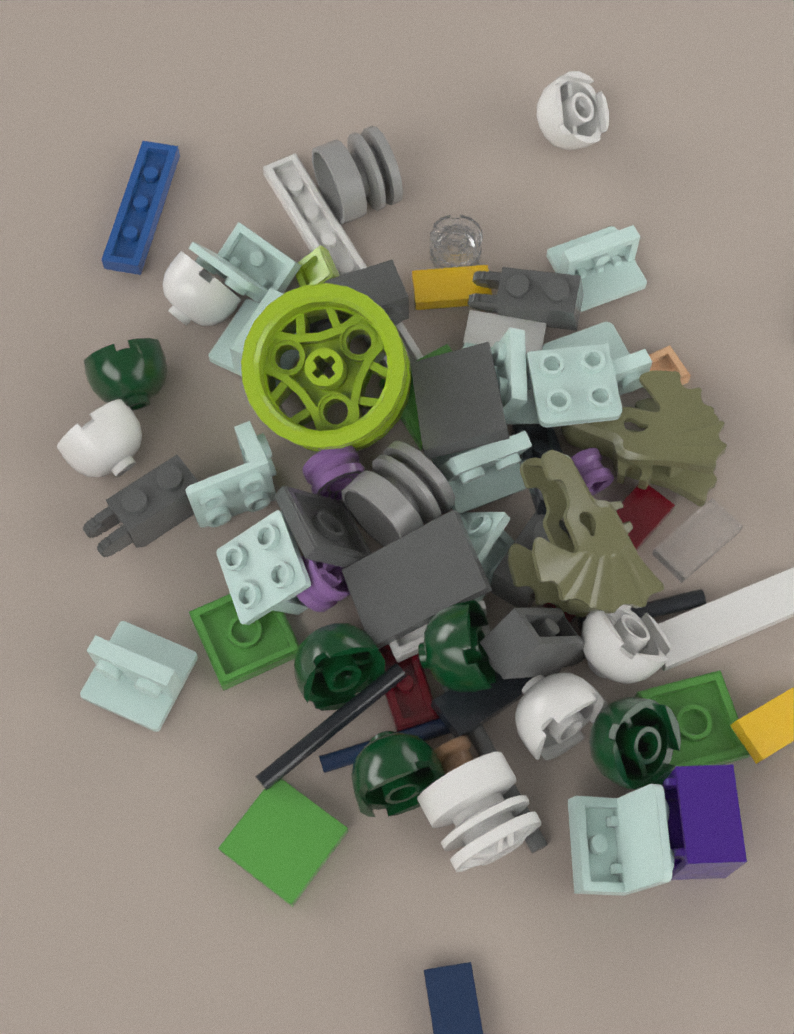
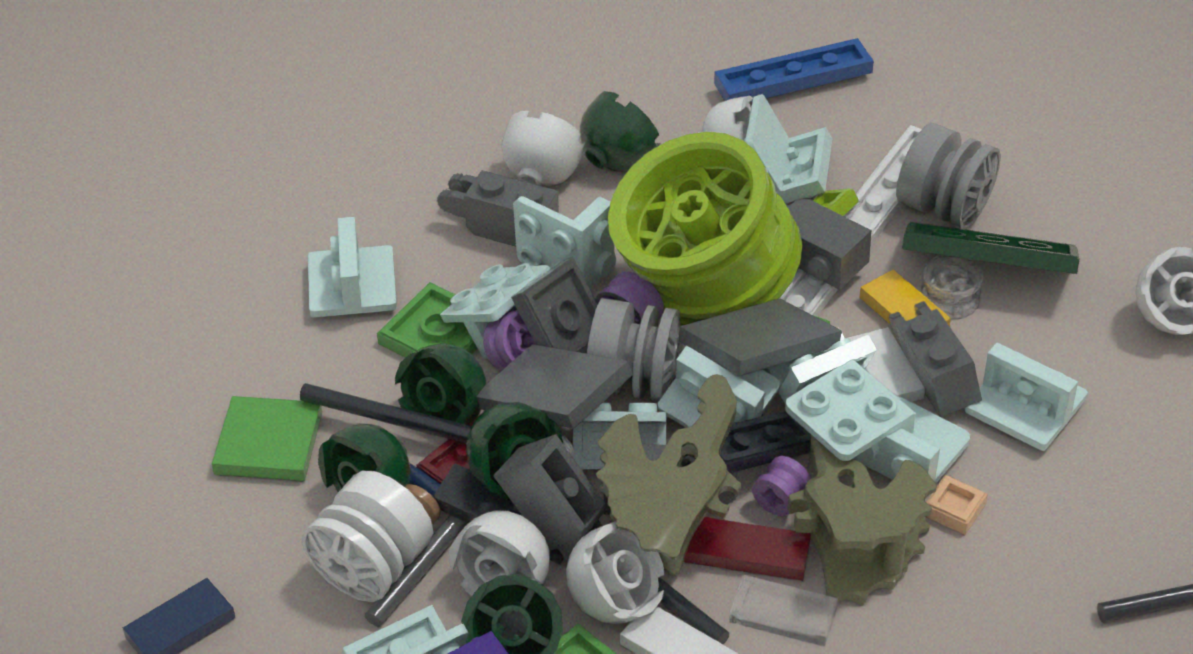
camera: 60 degrees right, 20 degrees down
(442, 197) = (991, 247): none -> dark green tile

